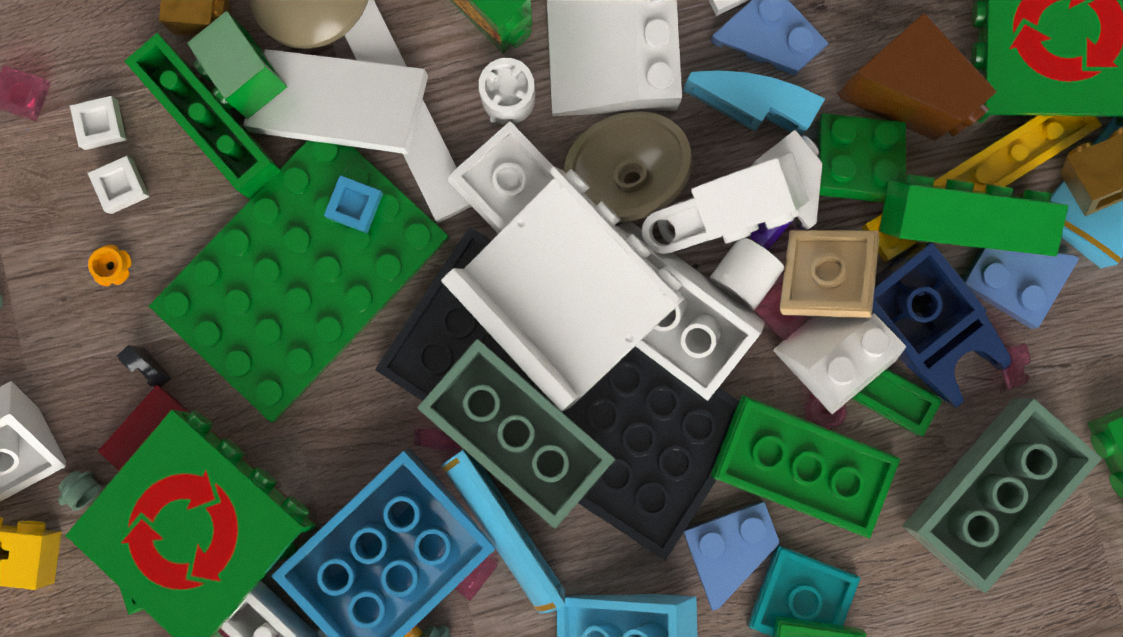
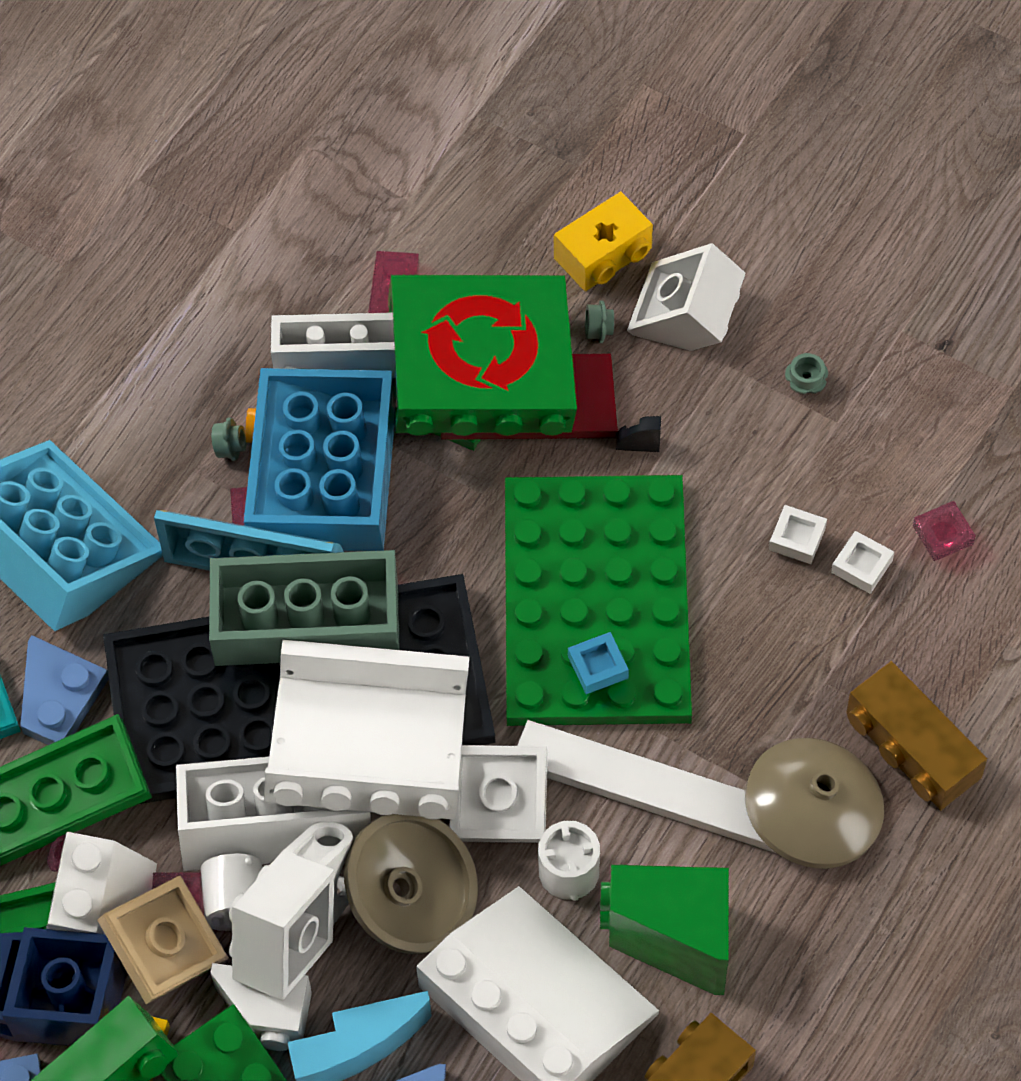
camera: 140 degrees right, 25 degrees down
(99, 263) = (746, 468): light orange plate -> none
(202, 116) = (782, 628): green brick -> none
(235, 66) = (798, 684): green brick -> none
(342, 102) = (695, 730): white tile -> none

